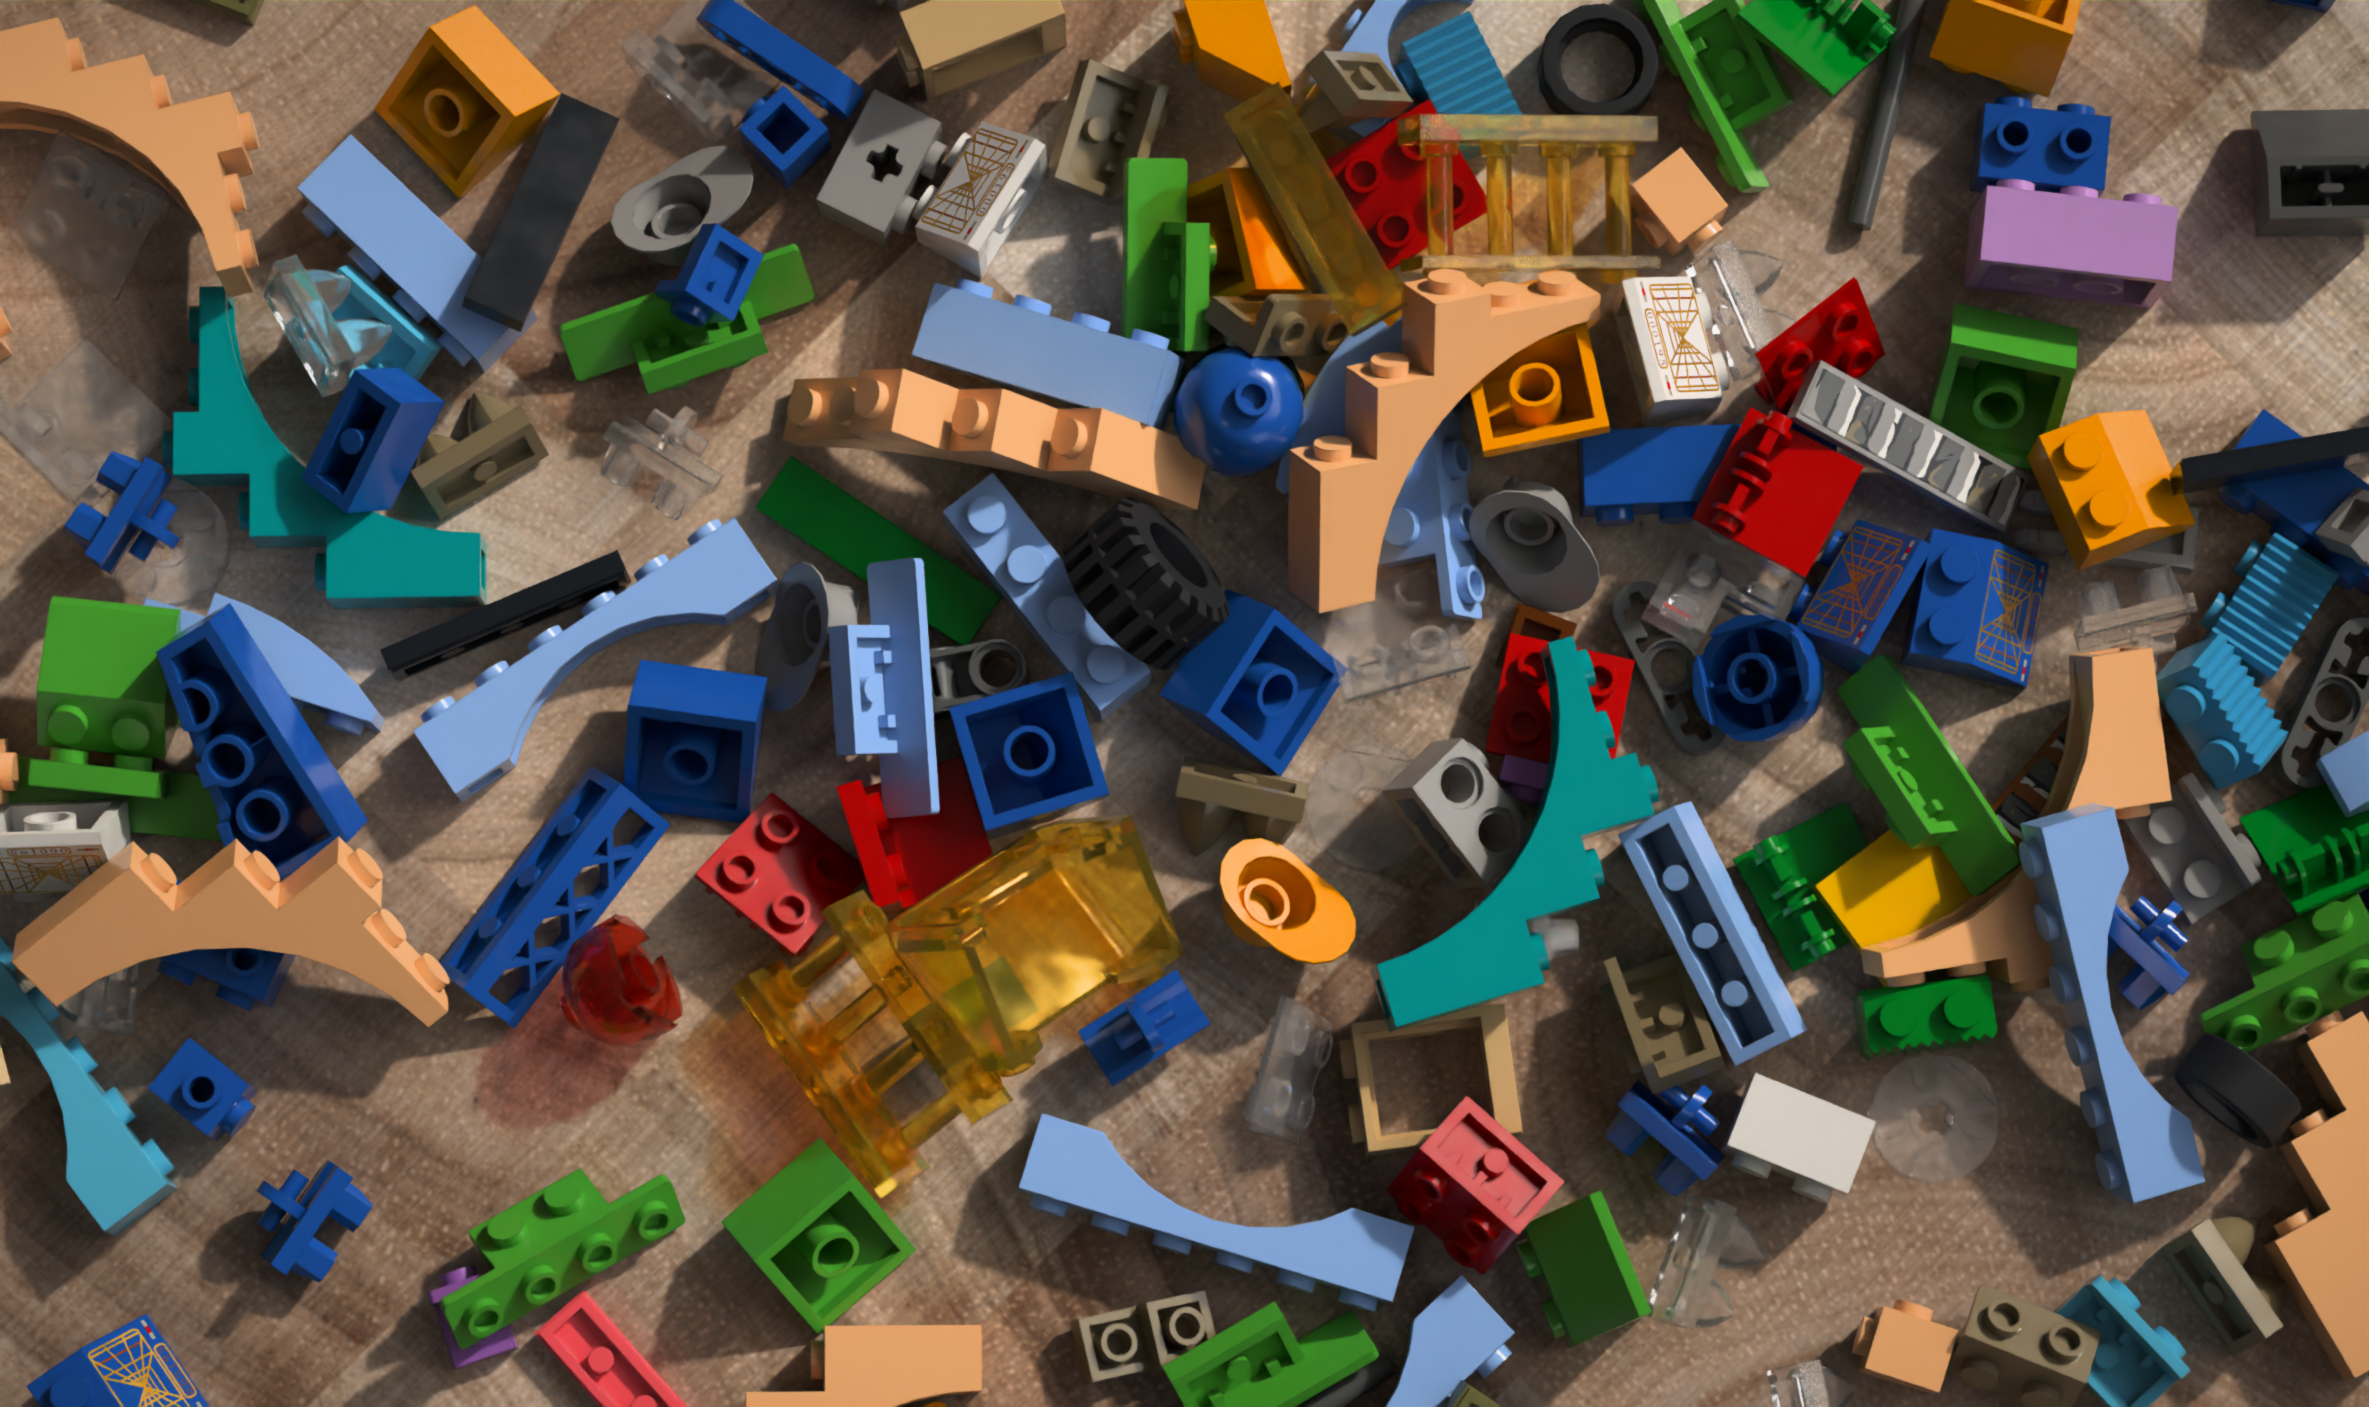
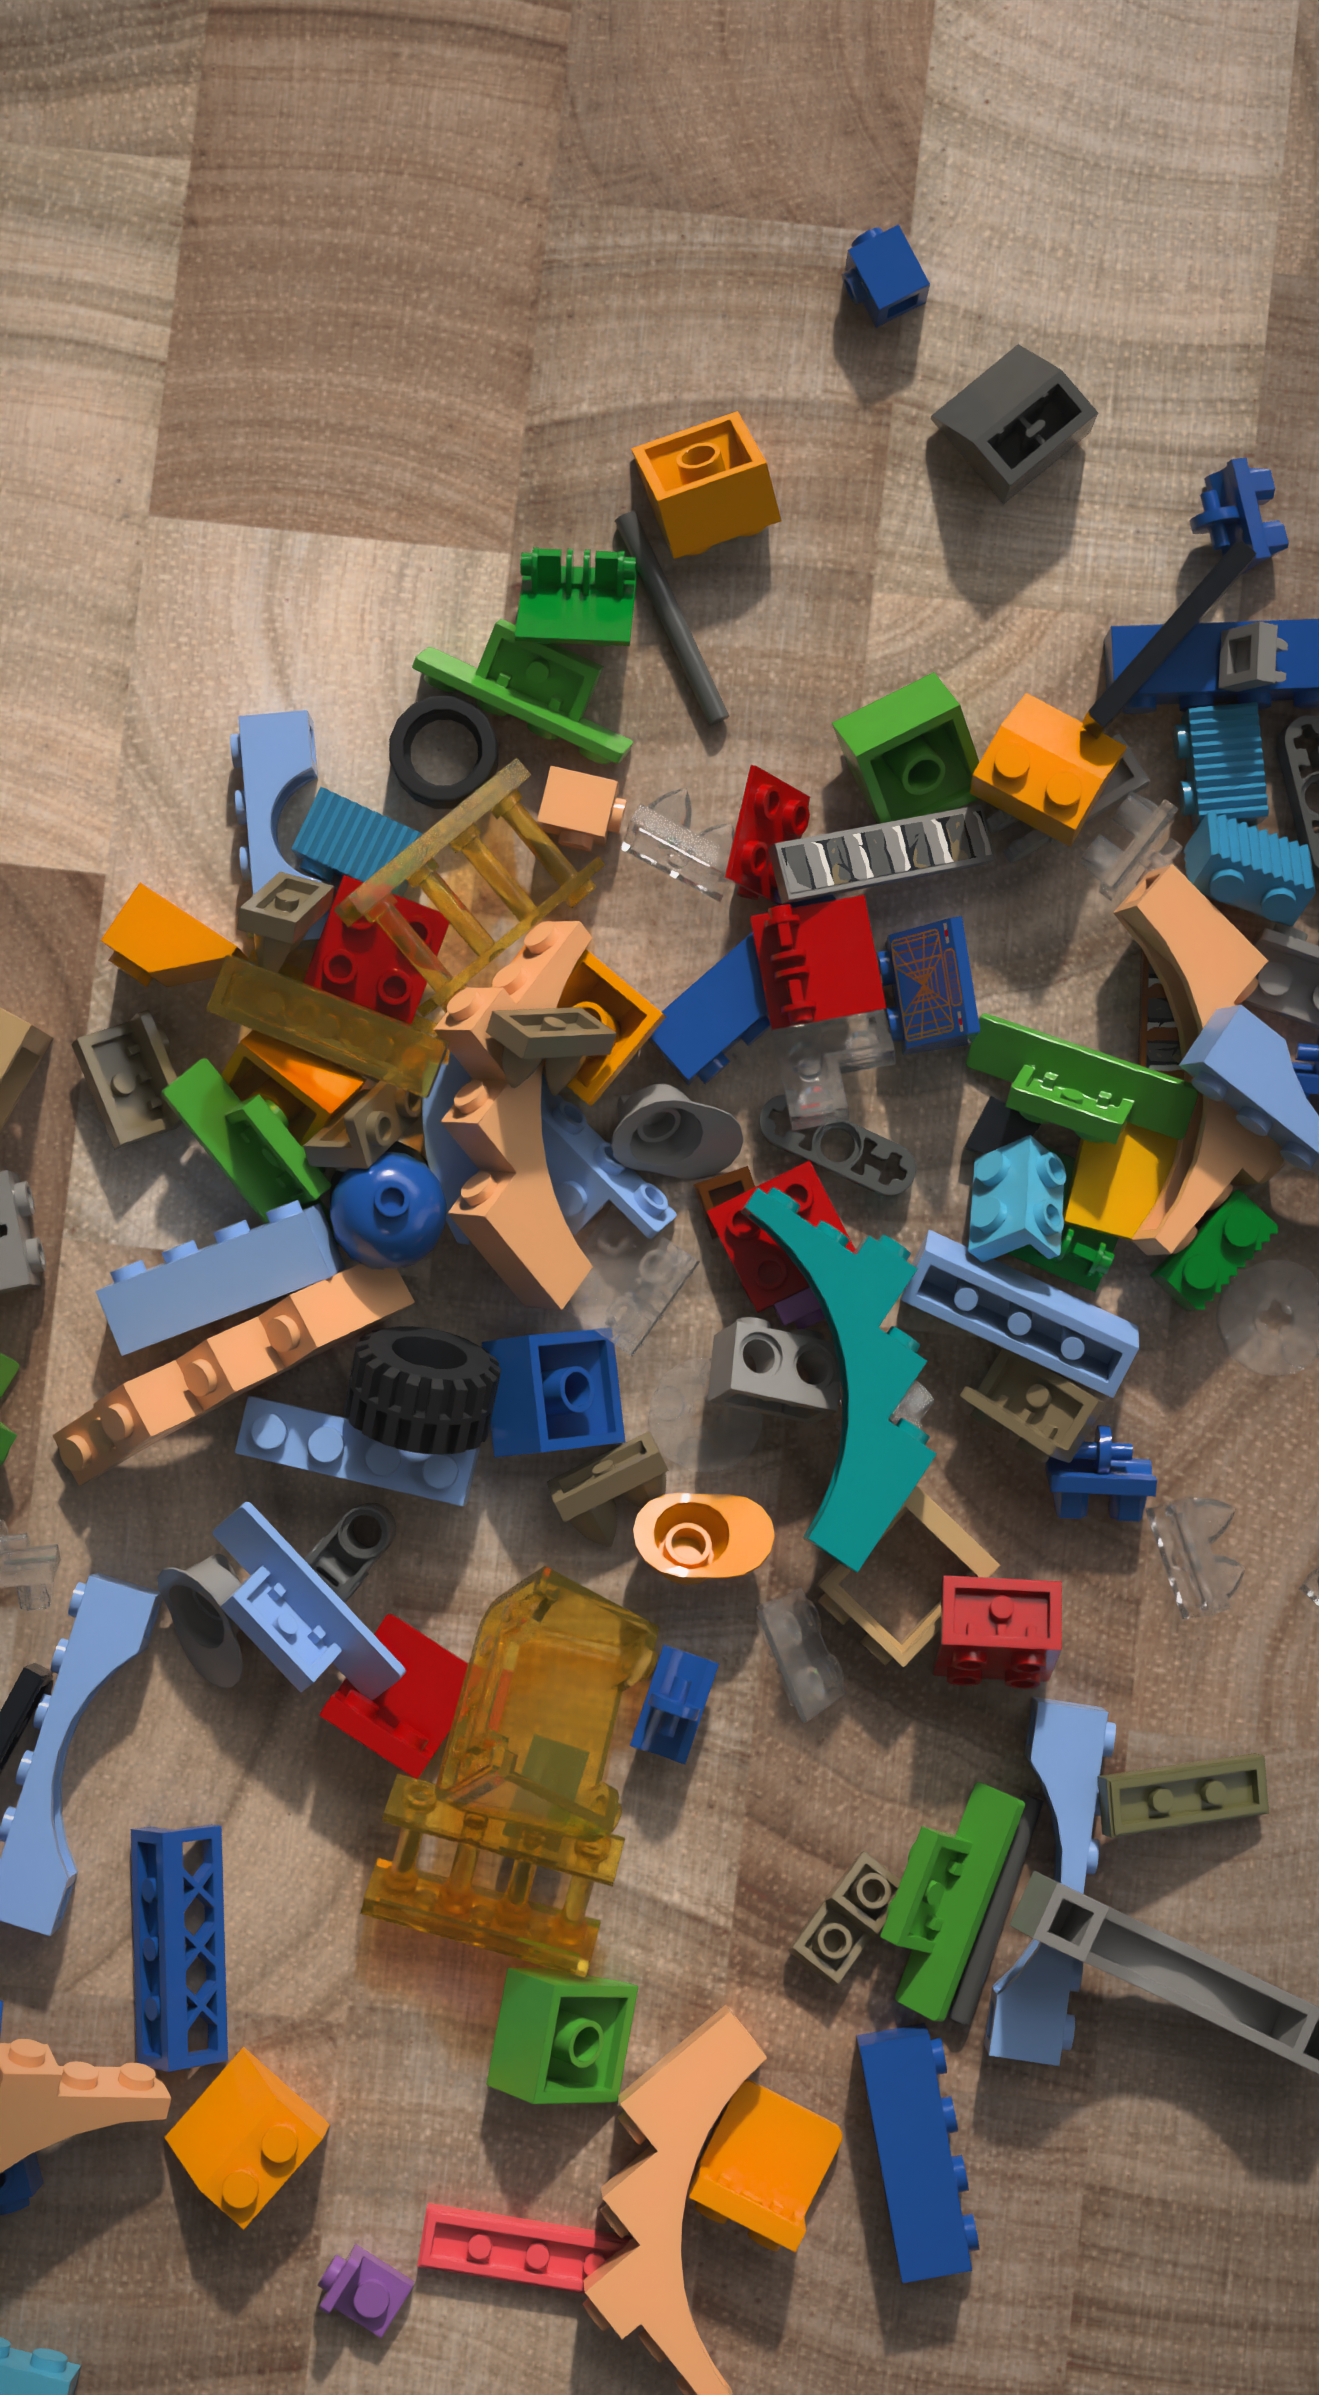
camera: 30 degrees left, 5 degrees up
(205, 1091) = (43, 2287): blue brick -> none
(294, 1242) = (196, 2343): blue hips -> none
(478, 1103) = (245, 2137): none -> light orange slope
(553, 1246) = (379, 2200): bright green bracket -> none
(616, 988) = (277, 1975): clear red cylinder -> none
(694, 740) = (189, 1754): blue slope -> none
(781, 874) = (328, 1800): red hinge -> none
(857, 536) = (193, 1511): green tile -> none
(981, 197) = (79, 1199): white slope -> none
(1029, 754) = (436, 1578): blue slope -> none
(1345, 1251) = (716, 1838): light blue arch -> none
(1507, 372) = (555, 1034): none -> dark tan tile
(1582, 1271) = (1122, 1628): bright green slope -> none
(1668, 348) = (656, 917): white slope -> none
(1758, 678) = (909, 1107): blue cylinder -> none
(1790, 832) = (1017, 1200): none -> medium azure bracket
(1798, 1138) = (1193, 1411): white brick -> none
(1822, 767) = (998, 1127): none -> black tile
(1975, 610) = (1019, 931): blue slope -> none
(2040, 146) = (805, 563): blue brick -> none
(2071, 244) = (882, 615): lavender brick -> none

